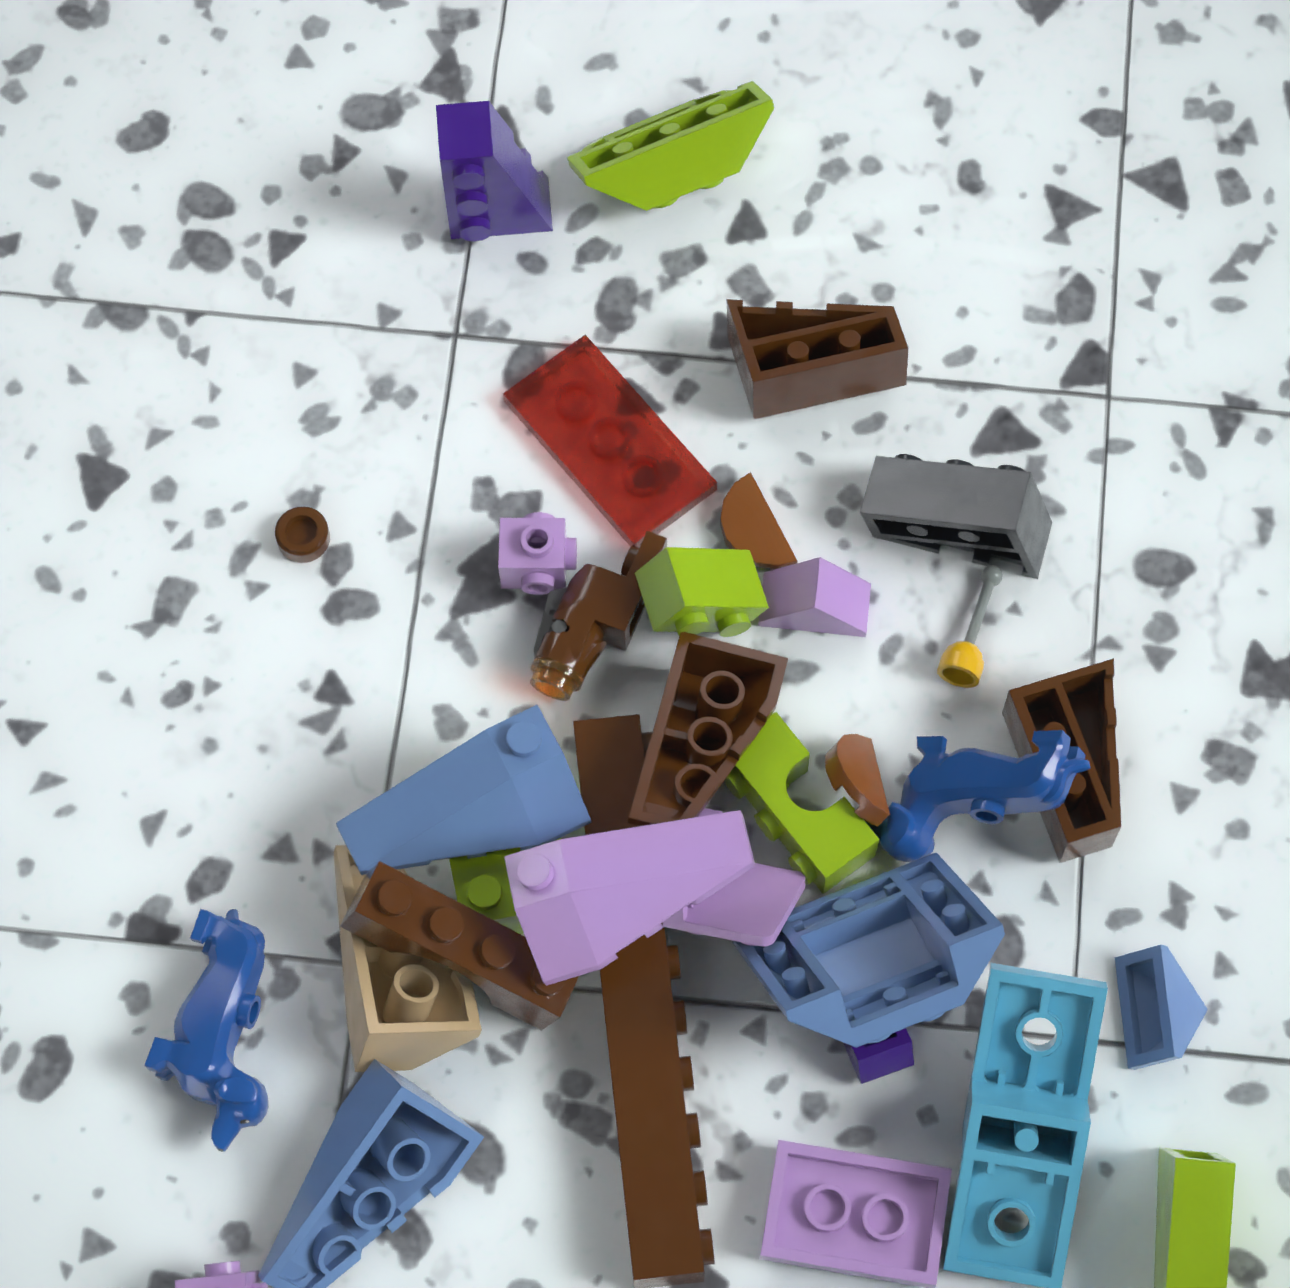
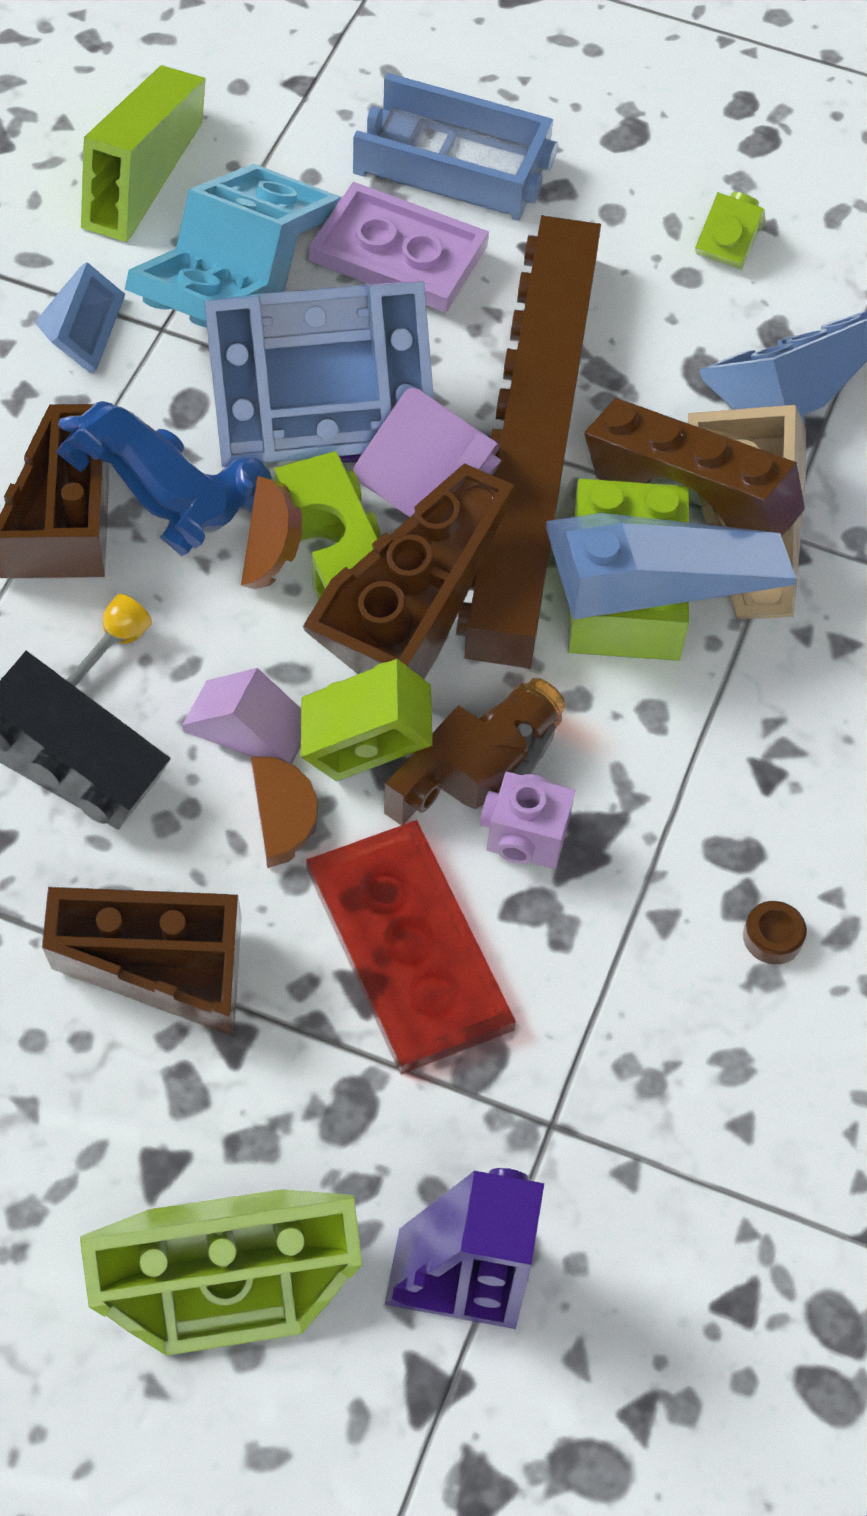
camera: 170 degrees left, 10 degrees down
(607, 889) = (540, 433): lavender wedge -> none

